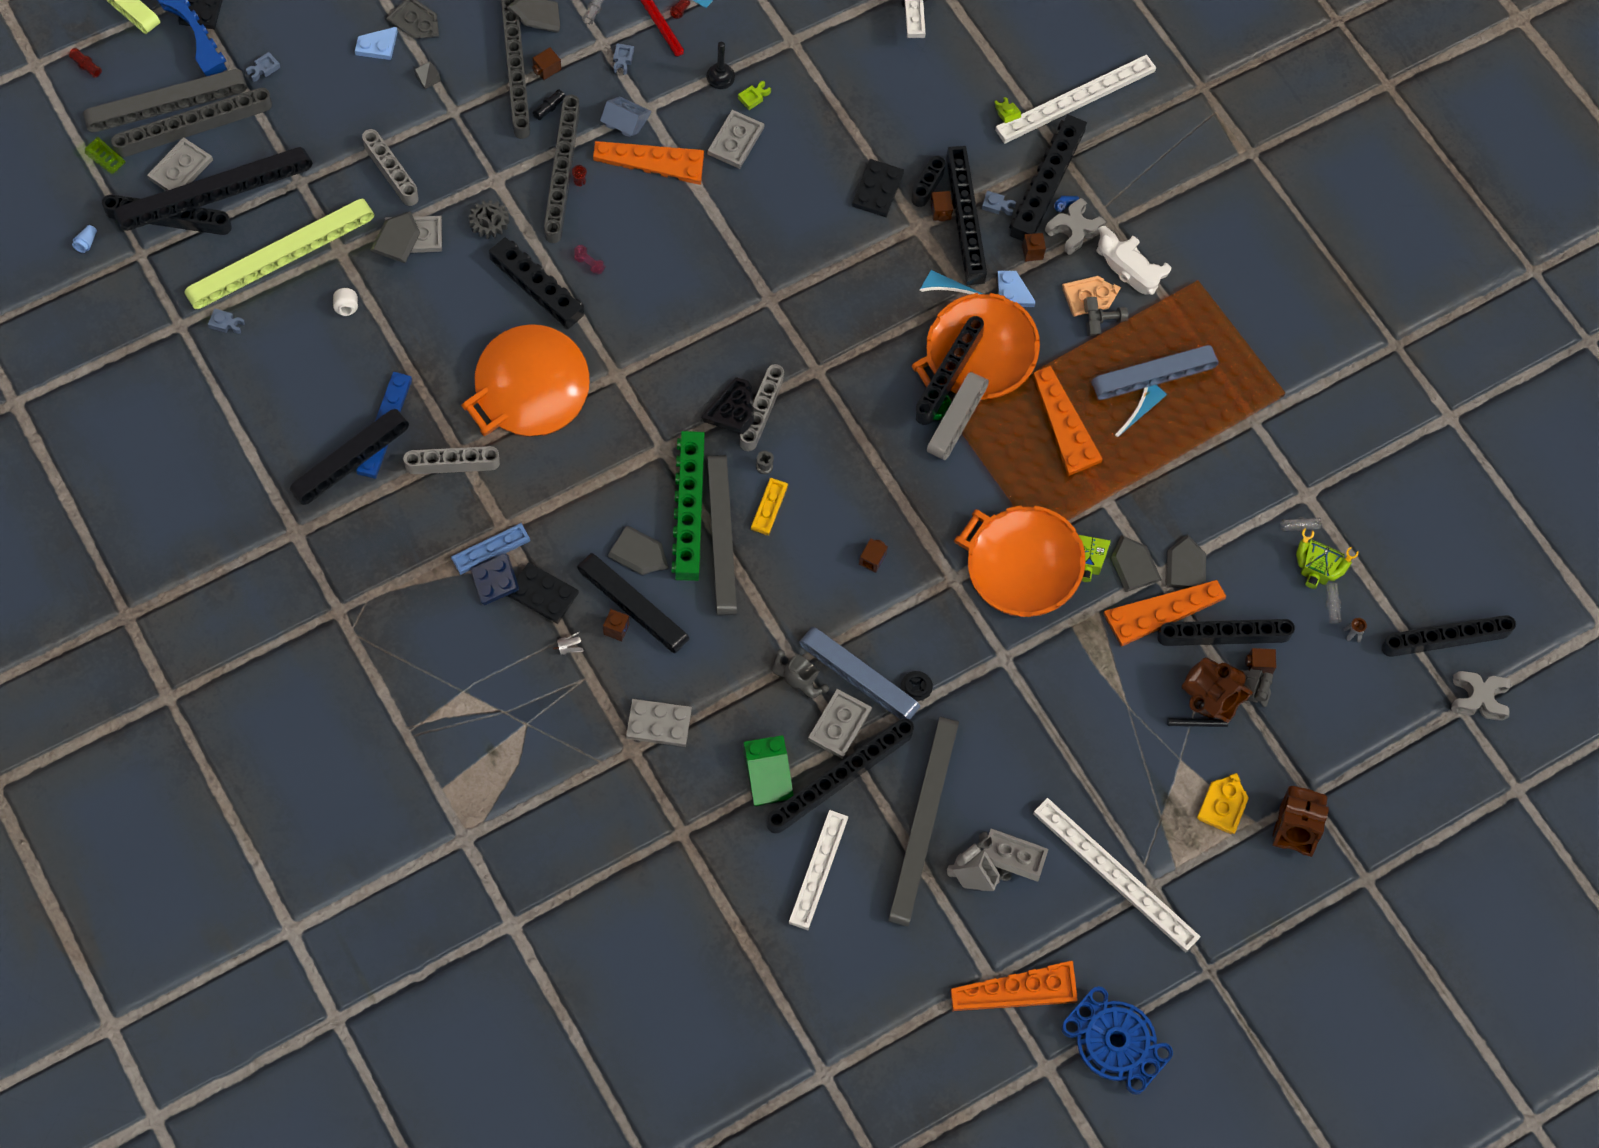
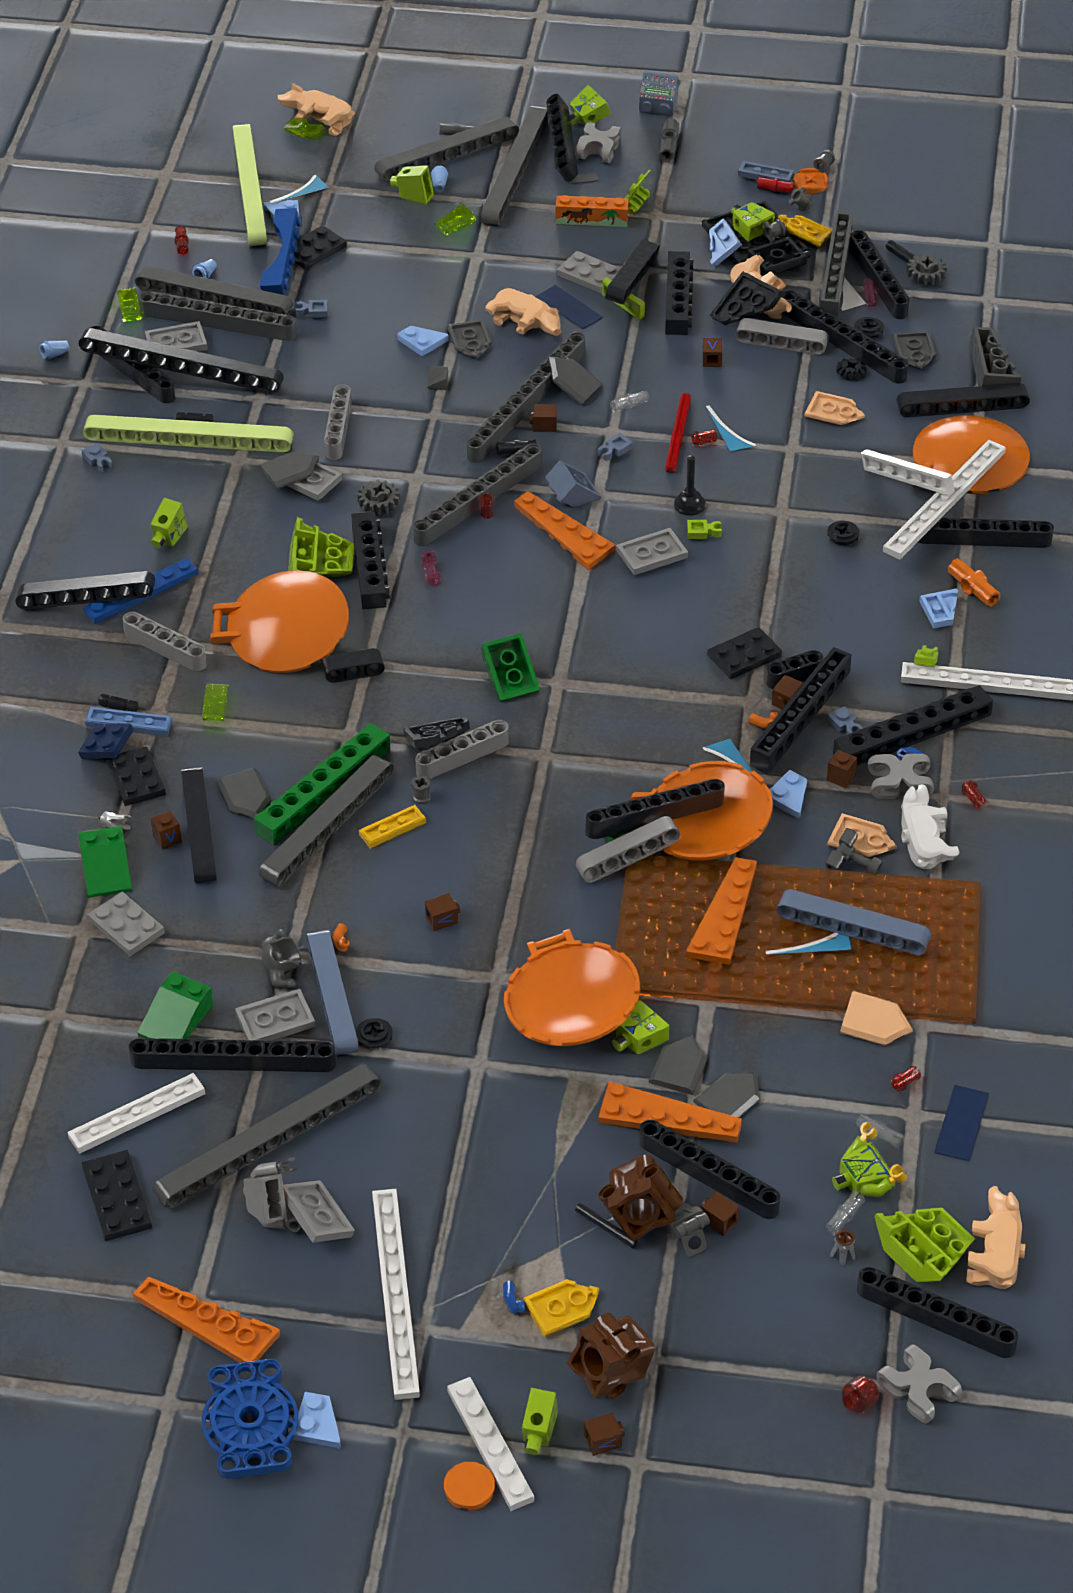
camera: 45 degrees right, 20 degrees down
(135, 82) = (204, 269): none -> light blue cone
(269, 234) = (195, 417): none -> black axle
(345, 301) = (201, 490): white head -> none
(353, 352) = (168, 523): none -> lime torso
(468, 538) = (117, 703): none -> black axle
(492, 302) = (319, 552): none -> lime wedge
(541, 487) = (215, 702): none -> clear neon green slope
(597, 683) = (105, 861): none -> green slope
(614, 386) = (353, 665): none -> black beam
(730, 313) = (509, 667): none -> green slope
(828, 630) = (338, 938): none -> orange arm
(859, 30) = (837, 528): none -> black gear
(864, 942) = (116, 1195): none -> black plate
(946, 239) = (761, 721): none -> orange arm
(978, 60) = (940, 607): none -> light blue wing
(982, 22) = (974, 582): none -> orange piece
(1131, 208) = (970, 789): none -> clear red pin
(1153, 1005) = (317, 1421): none -> light blue wing
(1189, 822) = (509, 1296): none -> blue arm
(1226, 440) = (874, 1019): none -> light nougat tile
(1270, 937) = (490, 1444): none -> white plate
(1282, 472) = (902, 1080): none -> clear red pin
(1286, 977) = (469, 1486): none -> orange tile
(1293, 900) = (539, 1420): none -> lime torso
(1334, 877) = (603, 1434): none -> reddish brown brick
(1339, 480) = (961, 1122): none -> dark blue sticker
(1402, 590) = (923, 1242): none -> lime wedge
(1445, 555) = (1002, 1243): none -> light nougat animal
(1455, 730) = (860, 1394): none -> clear red head

